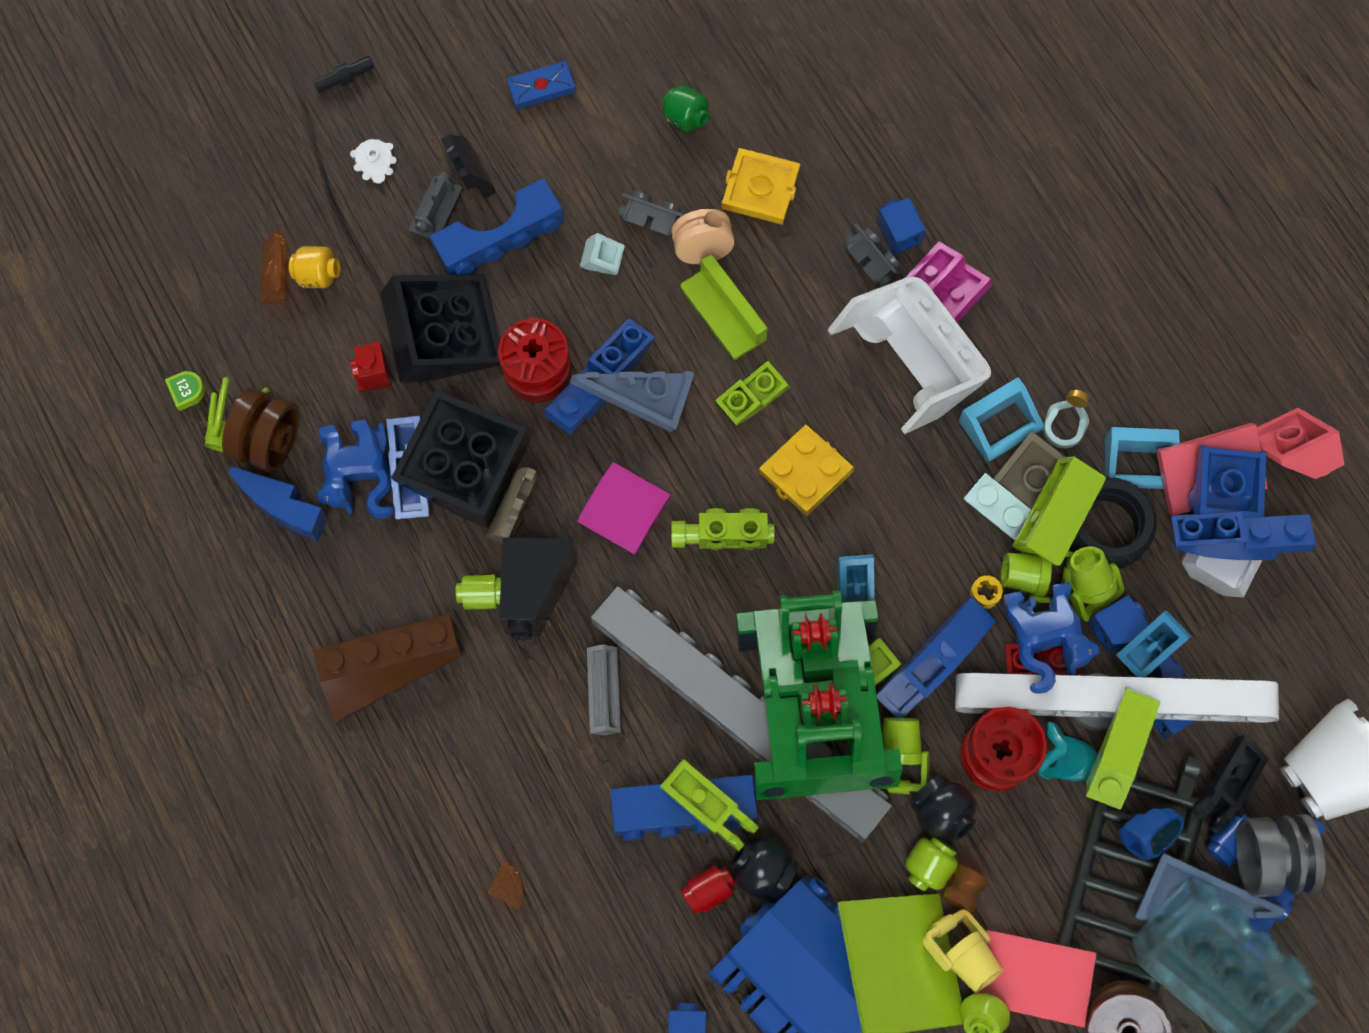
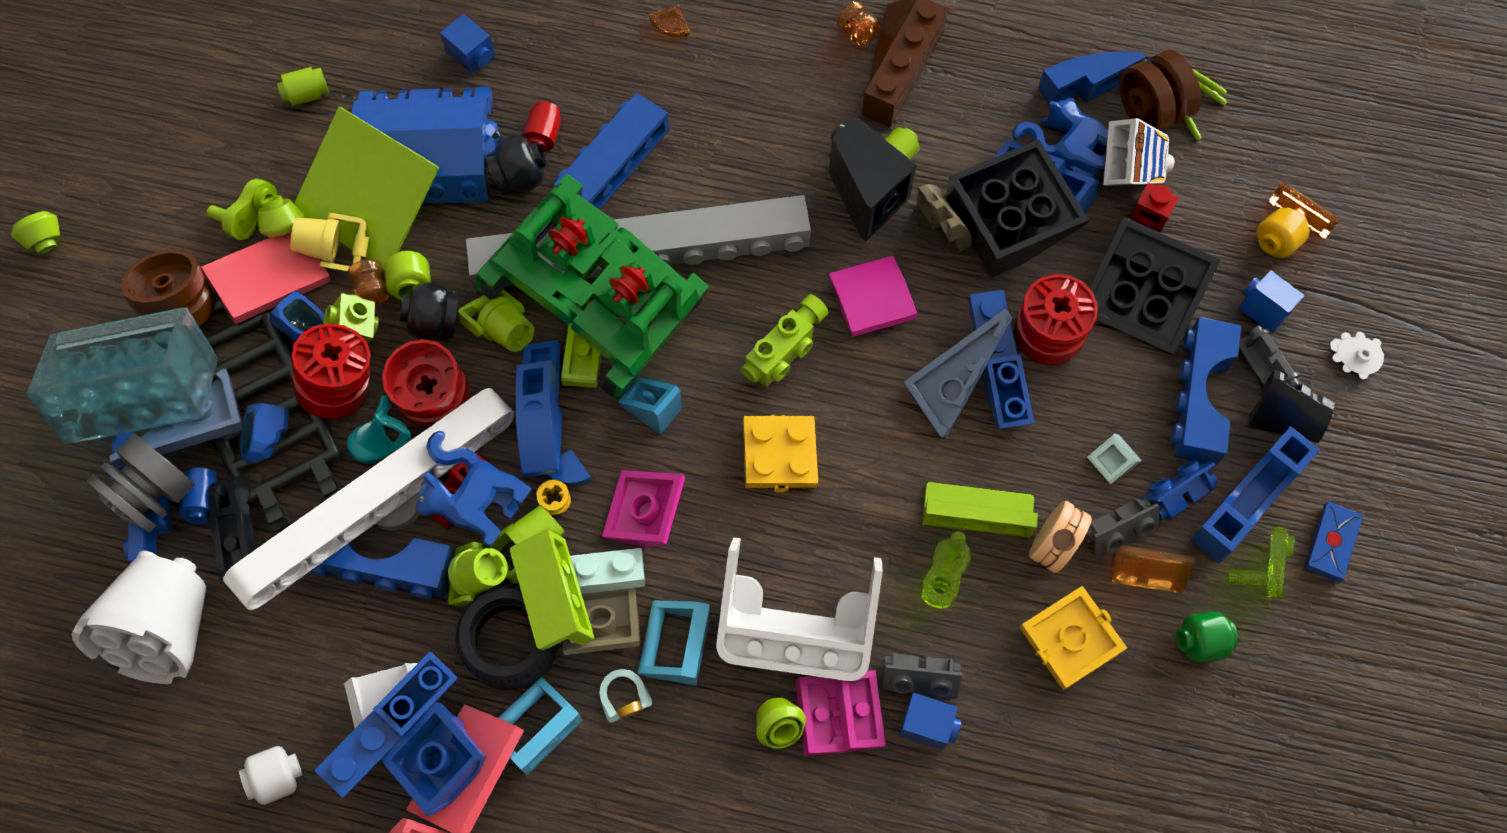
camera: 130 degrees right, 5 degrees down
(186, 389) = (1244, 85): tile -> none
(341, 404) = (1136, 154): none -> white torso
(343, 74) = (1470, 391): black bar -> none
(380, 722) = (858, 23): none -> clear orange wheel
(385, 235) = (1270, 300): none -> blue brick
(522, 145) = (1254, 495): none -> blue arch
(579, 108) = (1281, 547): none -> clear neon green piece
(580, 197) = (1191, 479): none -> blue hinge
(603, 690) = (744, 172): light grey piece -> none
(666, 175) = (1151, 569): none -> clear orange slope
(706, 802) = (591, 154): lime hinge -> none
(752, 394) = (882, 468): lime slope -> none
(781, 297) = (948, 565): none -> clear neon green piece
(935, 521) = (643, 508): none -> dark pink slope
(954, 597) = (570, 471): none -> blue tile
(989, 311) = (779, 723): none -> lime cone
(1010, 863) = (353, 313): none -> lime brick
(1044, 907) = (296, 315): none -> rock
(1075, 844) = (330, 370): none -> red wheel
(1122, 749) = (331, 451): lime slope -> none
(1153, 645) = (377, 557): dark azure slope -> none
(1339, 588) = (270, 775): none -> white head

